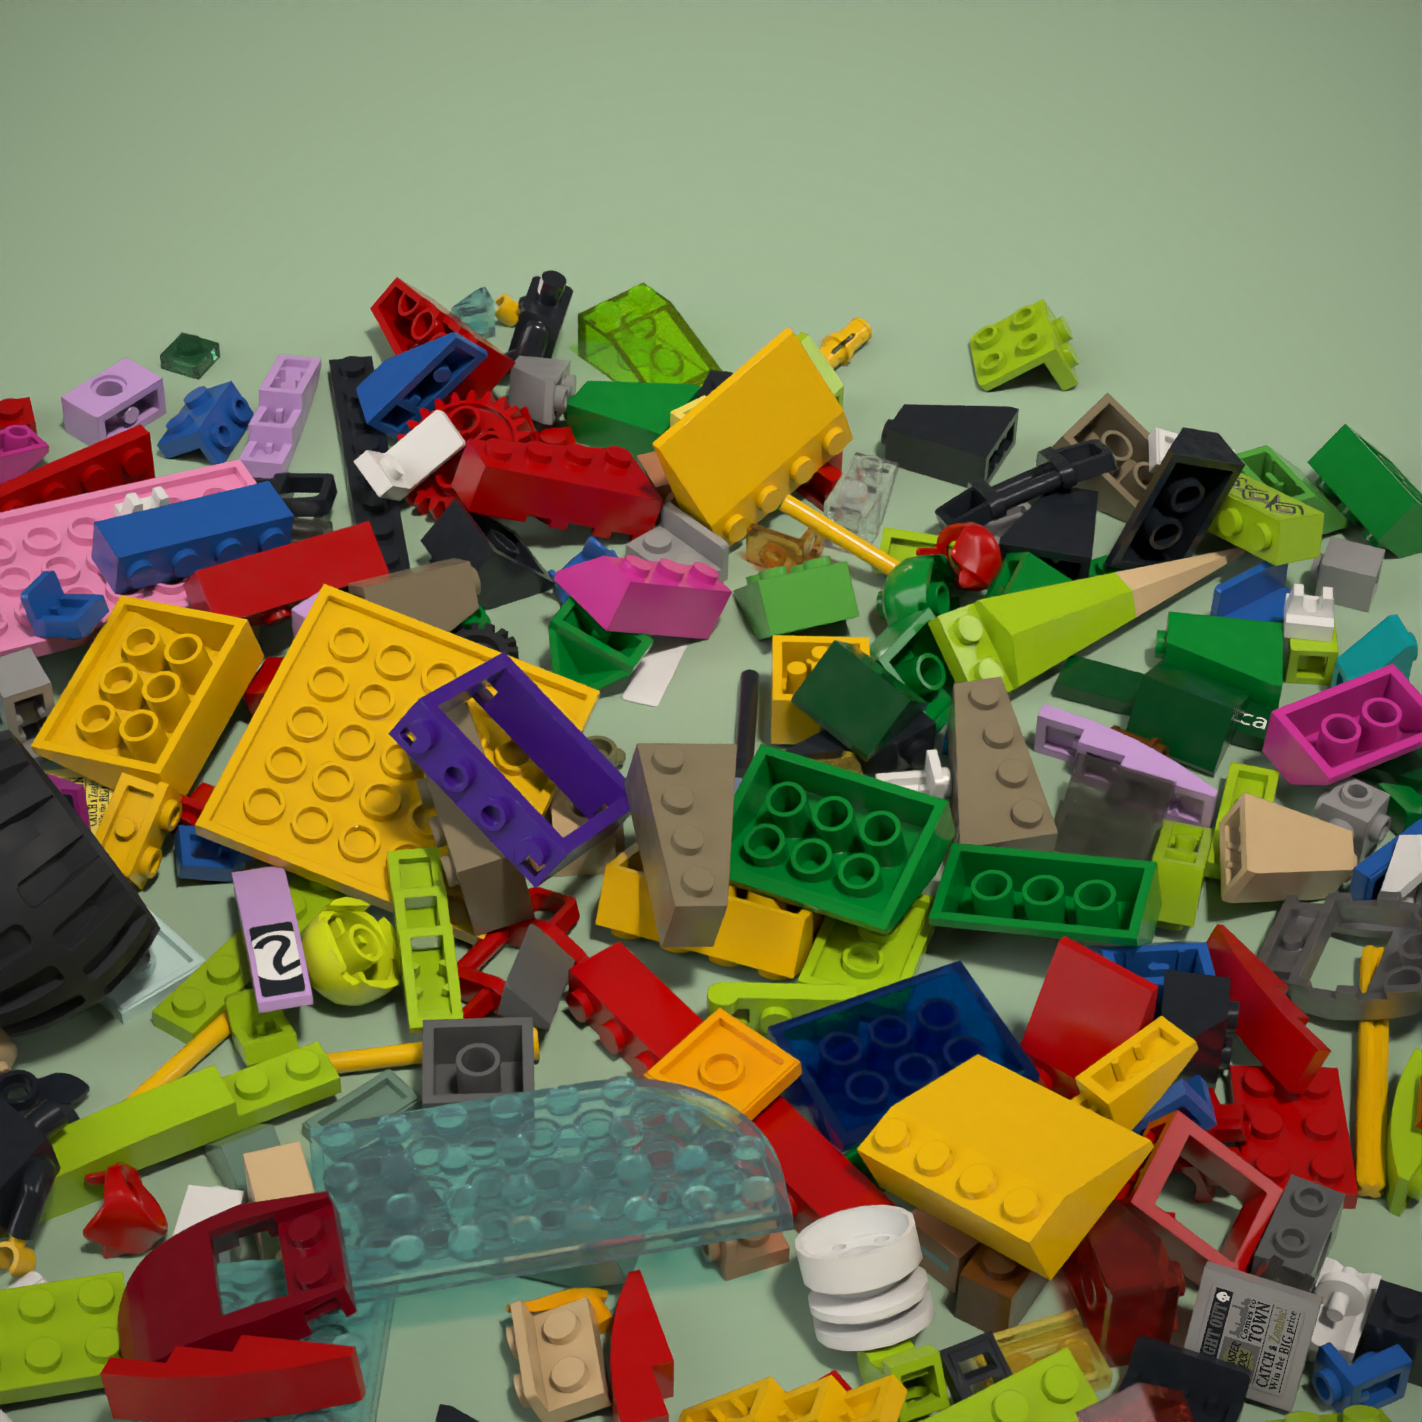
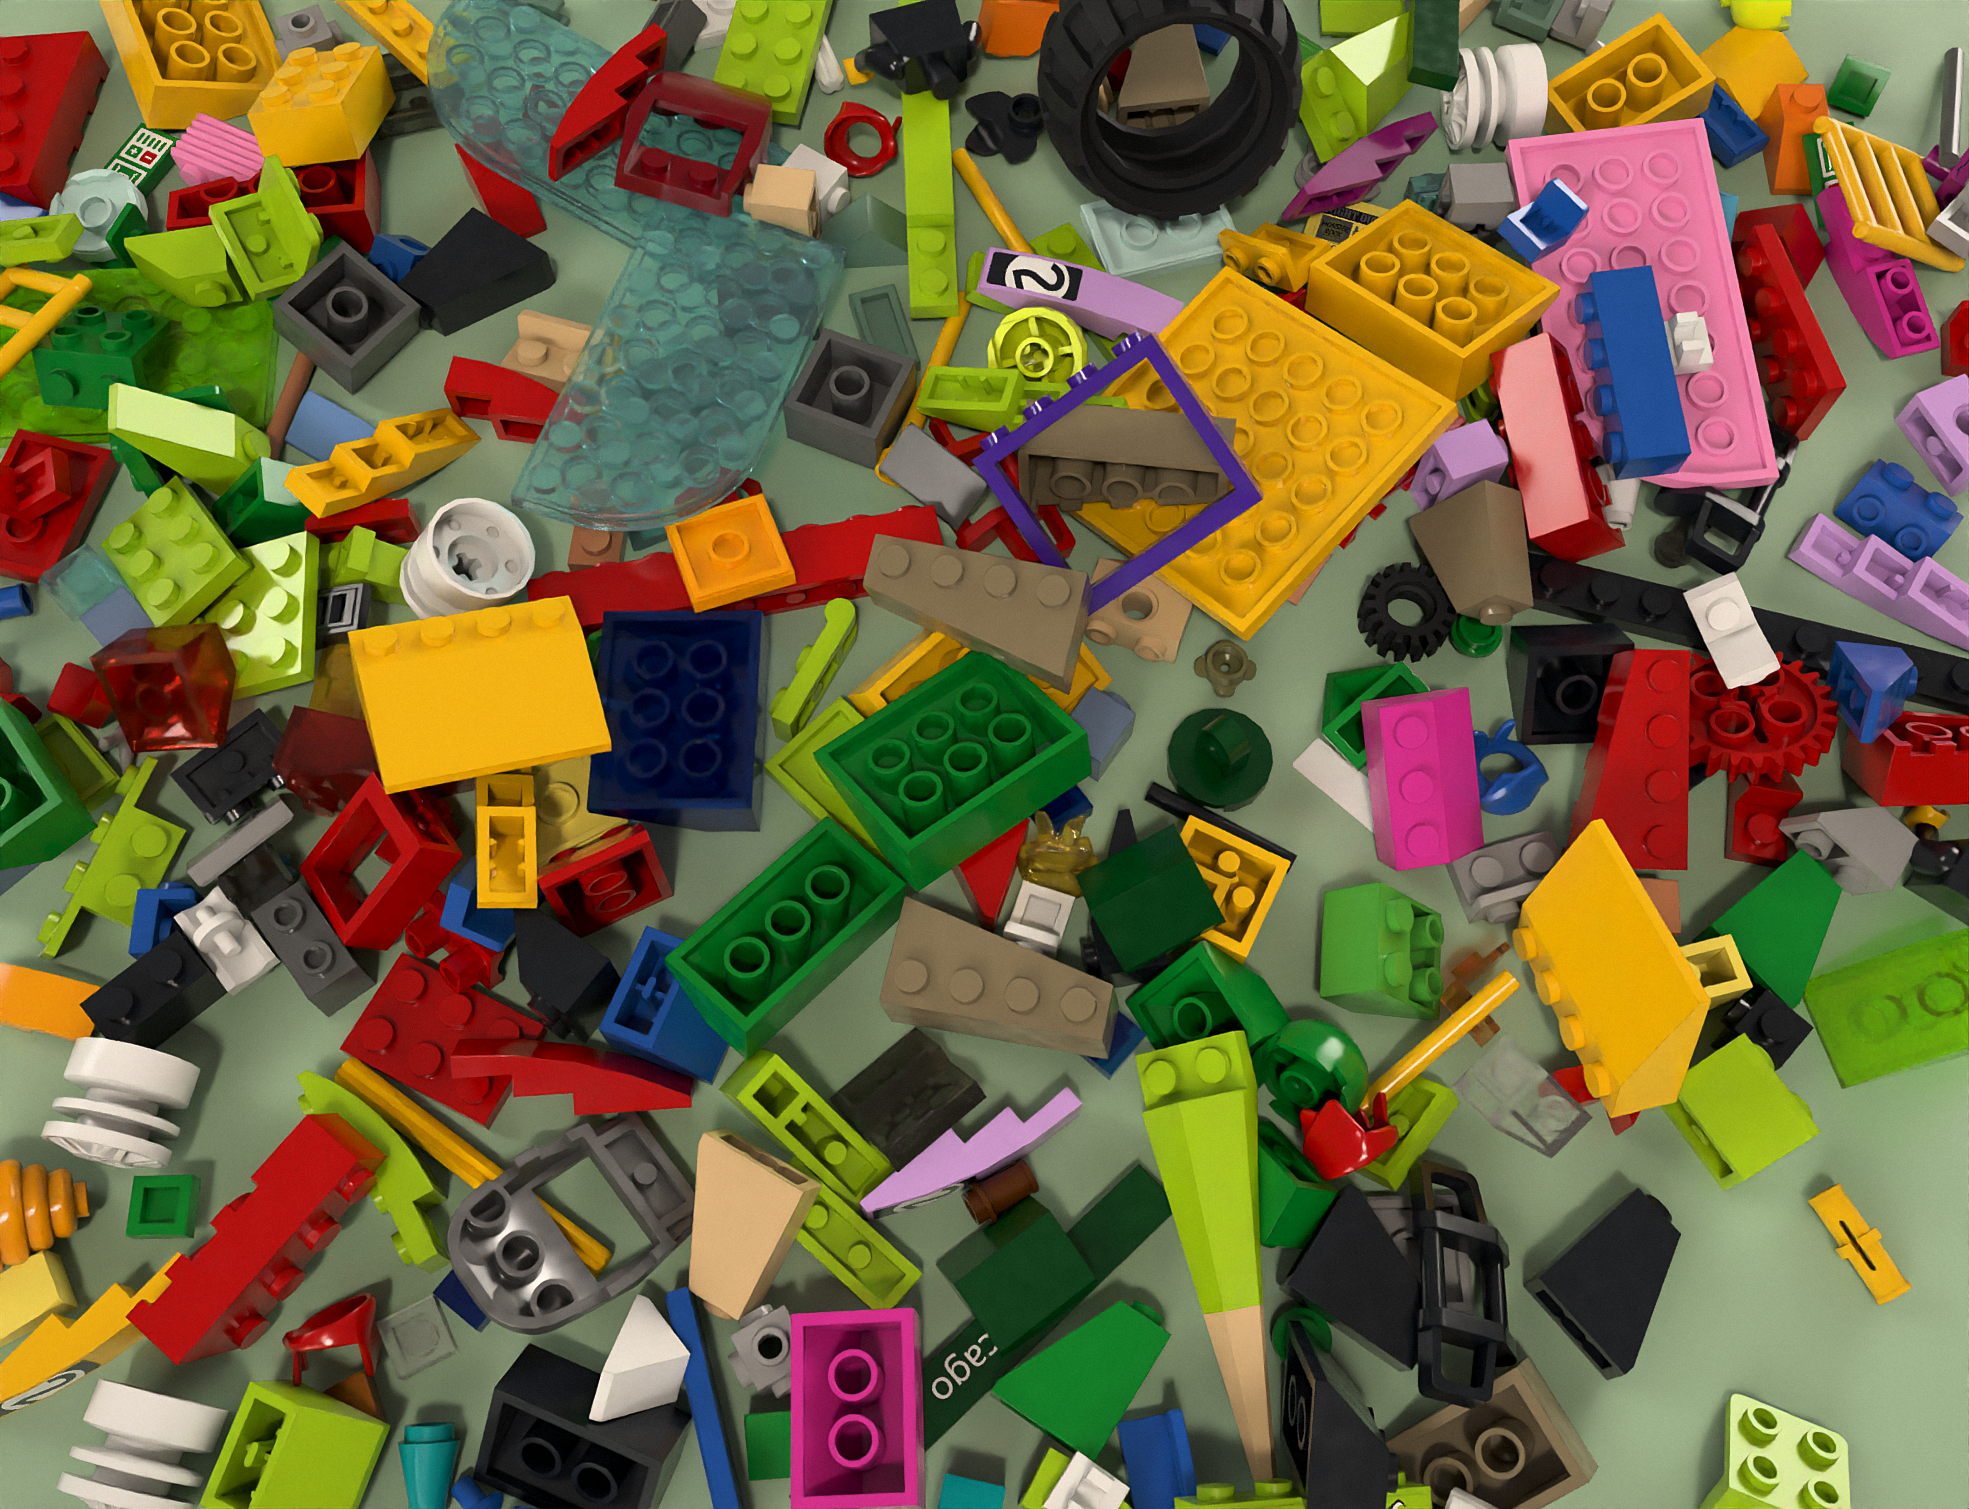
camera: 115 degrees right, 25 degrees up
(686, 721) = (1219, 759): none -> dark green tile

